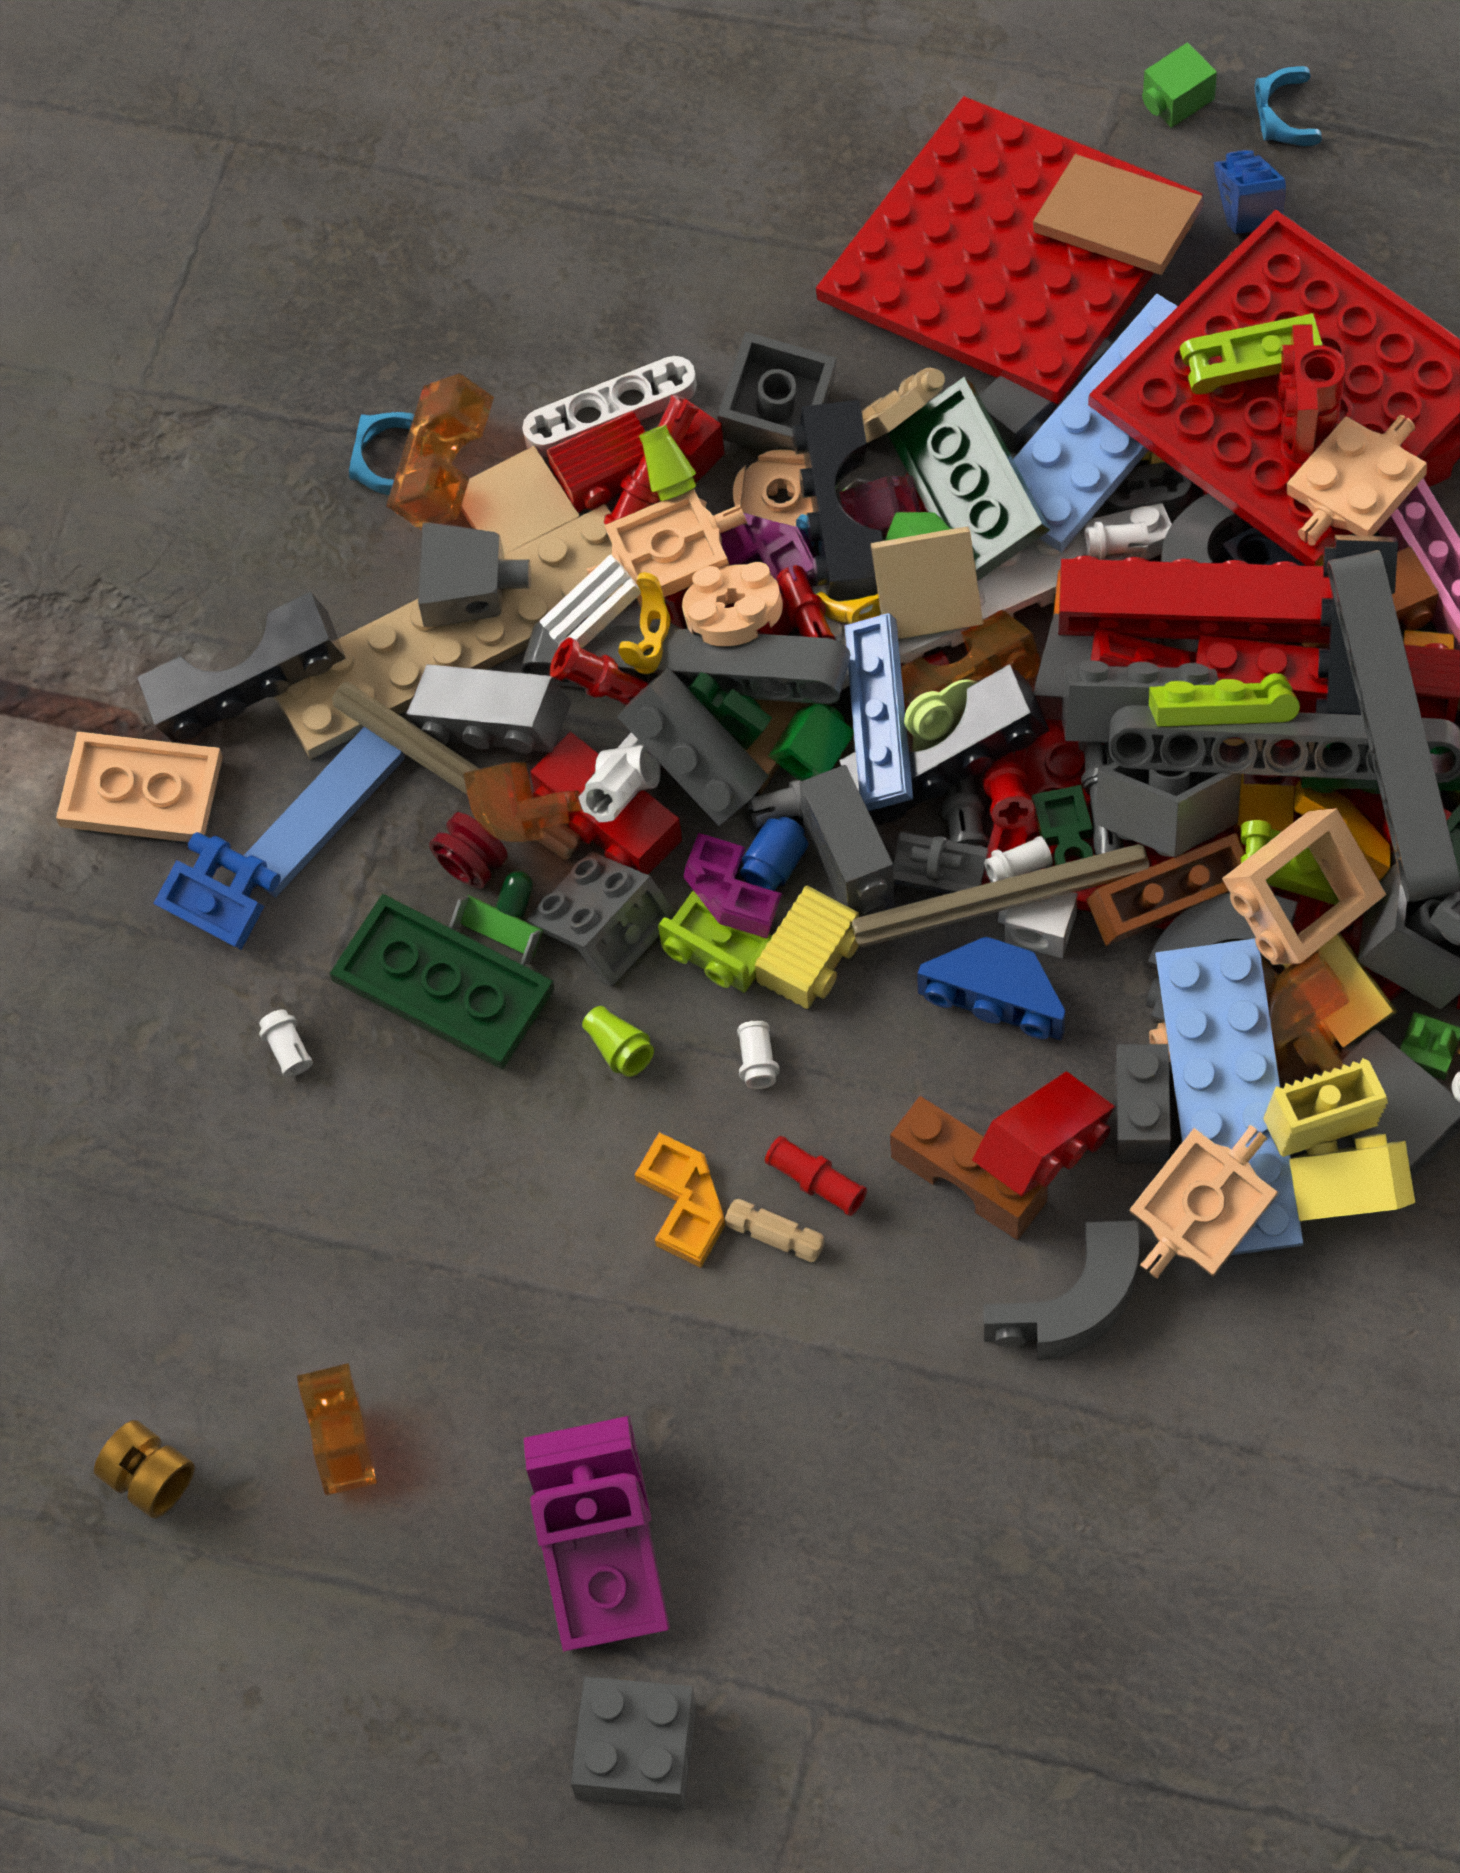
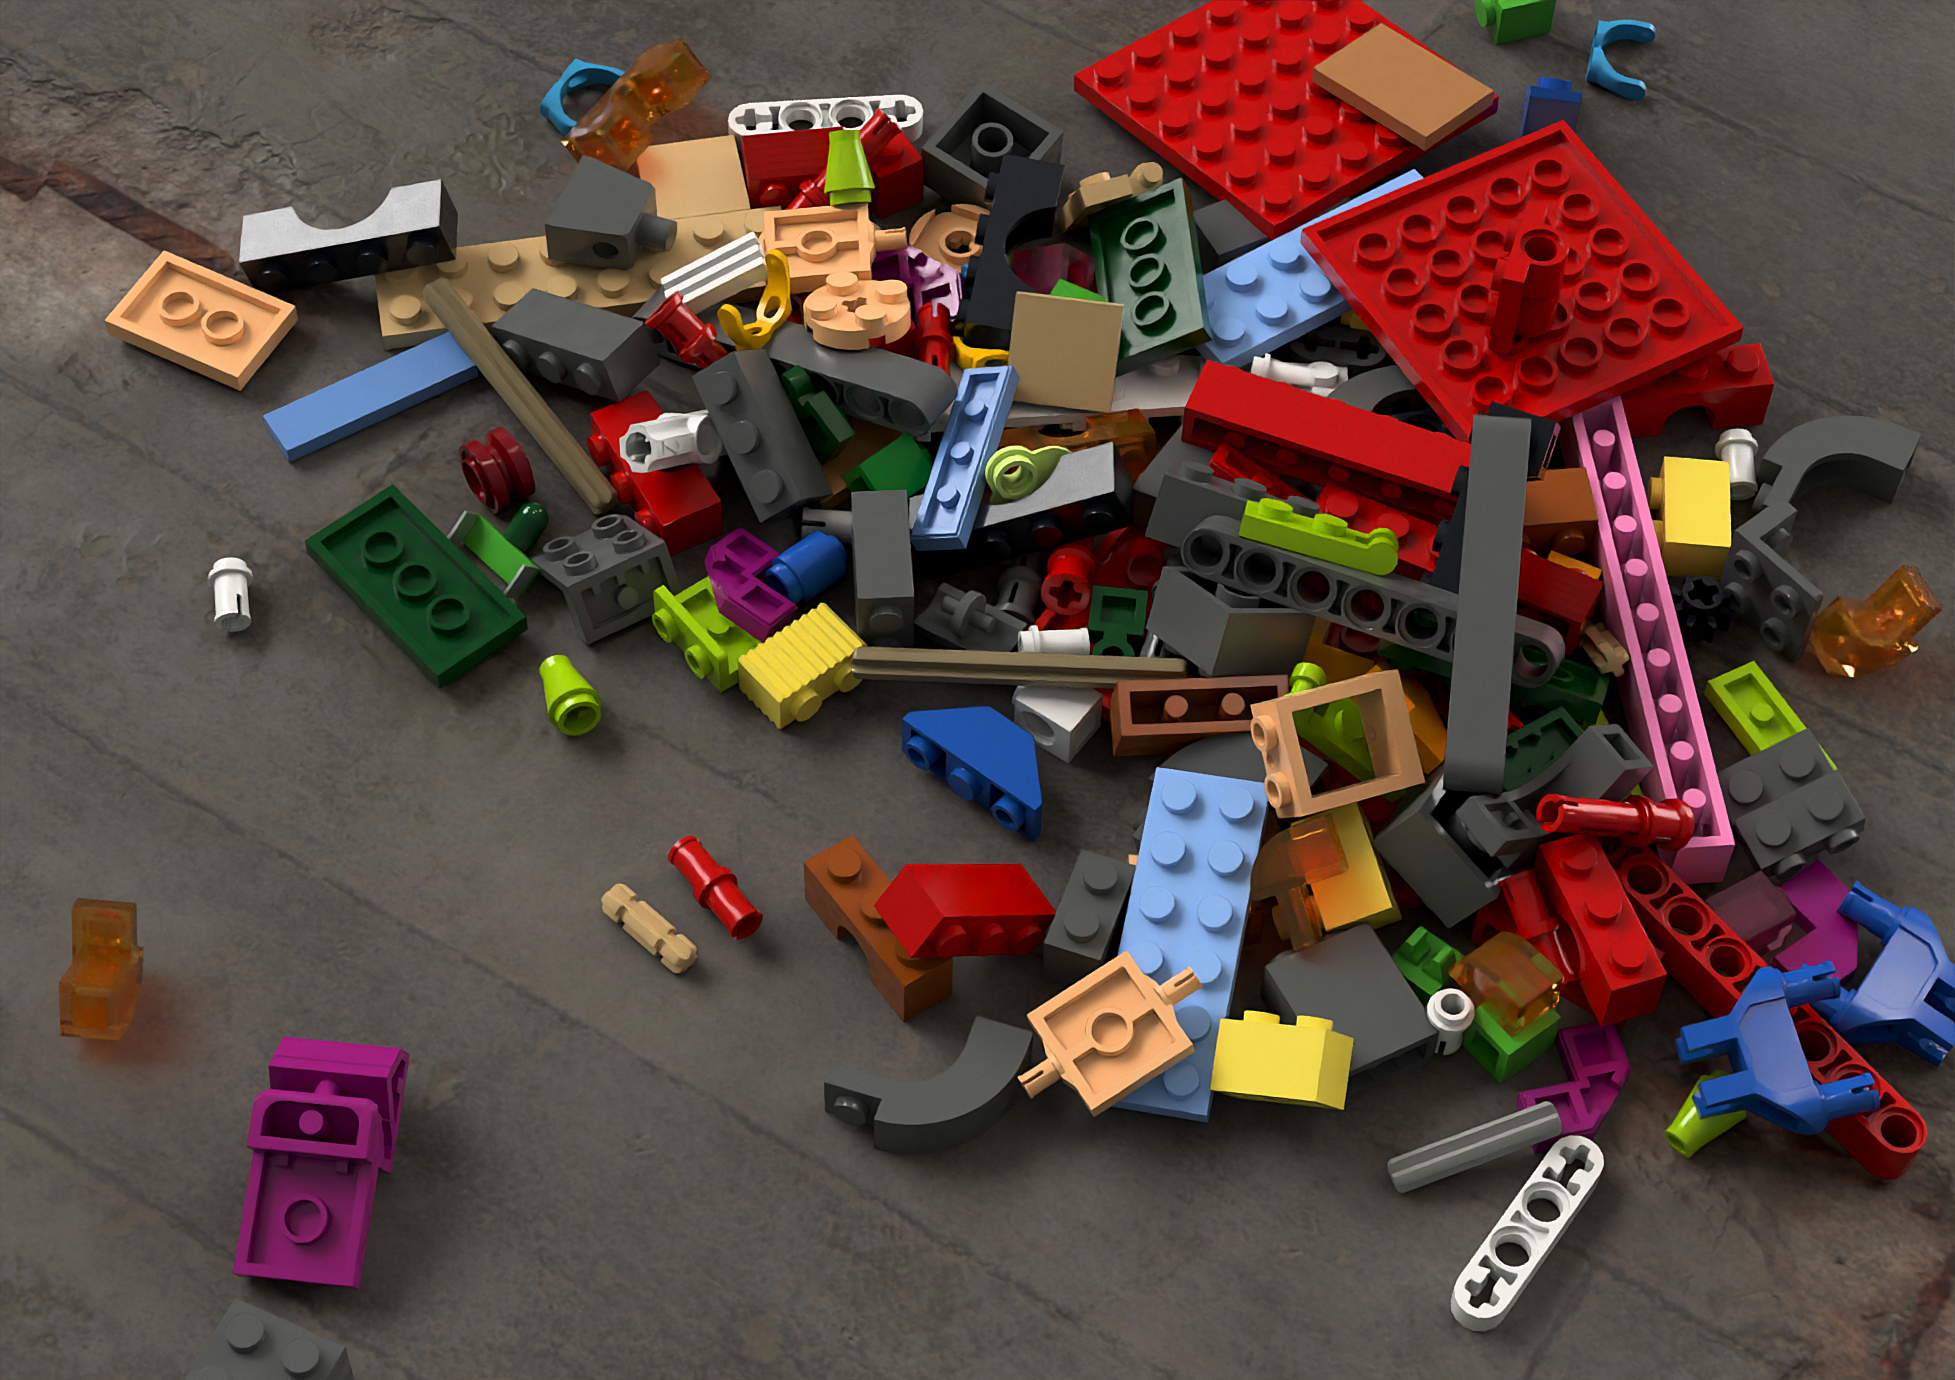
camera: 10 degrees right, 10 degrees down
(210, 904) = (218, 444): blue plate -> none
(505, 803) = (552, 436): clear orange brick -> none
(697, 1214) = (575, 889): light orange tile -> none
(758, 1066) = (702, 764): white pin -> none
(1244, 353) = (1475, 232): lime plate -> none
(1325, 1107) = (1275, 971): light yellow brick -> none
(1356, 479) = (1552, 375): light nougat plate -> none

